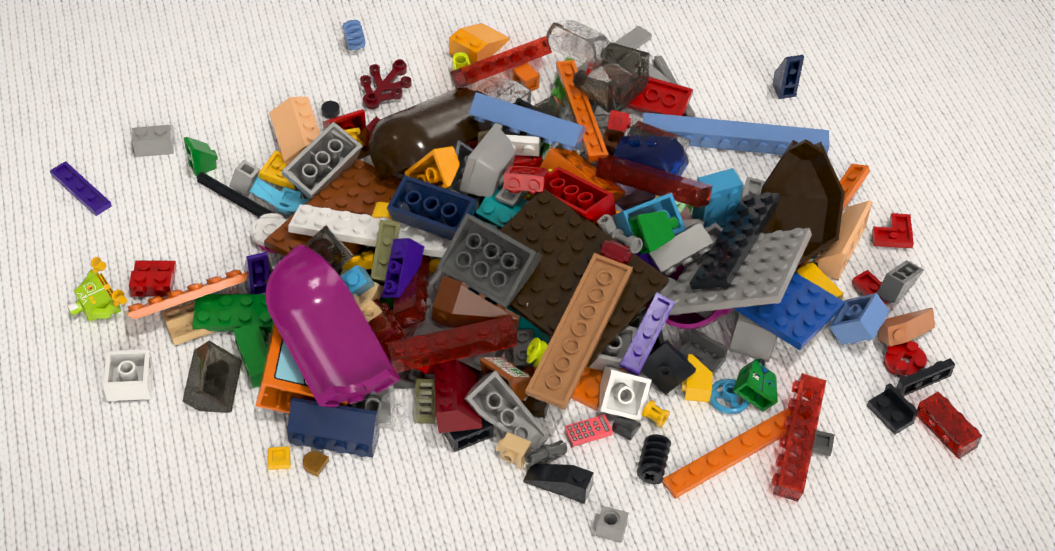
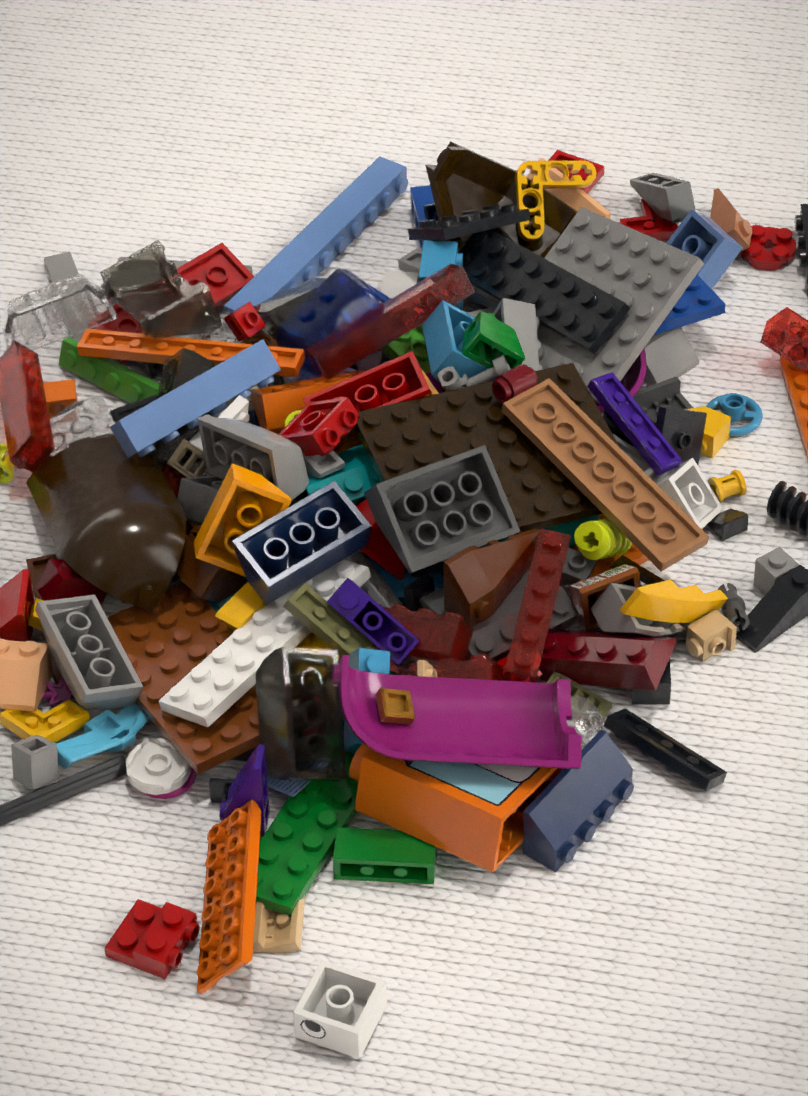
camera: 60 degrees left, 5 degrees down
(96, 296) = (153, 1012): lime torso -> none
(212, 379) = (399, 919): clear smoke slope -> none
(279, 458) = (579, 887): yellow tile -> none
(314, 462) = (611, 851): pearl gold tile -> none
(324, 300) = (395, 706): none -> pearl gold tile
(405, 460) = (665, 749): none -> black plate
(503, 408) = (670, 604): none -> yellow slope
(588, 430) = (714, 561): coral tile -> none
(590, 461) = (771, 568): none -> light grey brick
(757, 385) = (741, 376): green torso -> none
(771, 186) = (468, 223): none -> black plate
(787, 76) = (263, 160): dark blue slope -> none
(840, 206) = (542, 181): none -> yellow beam

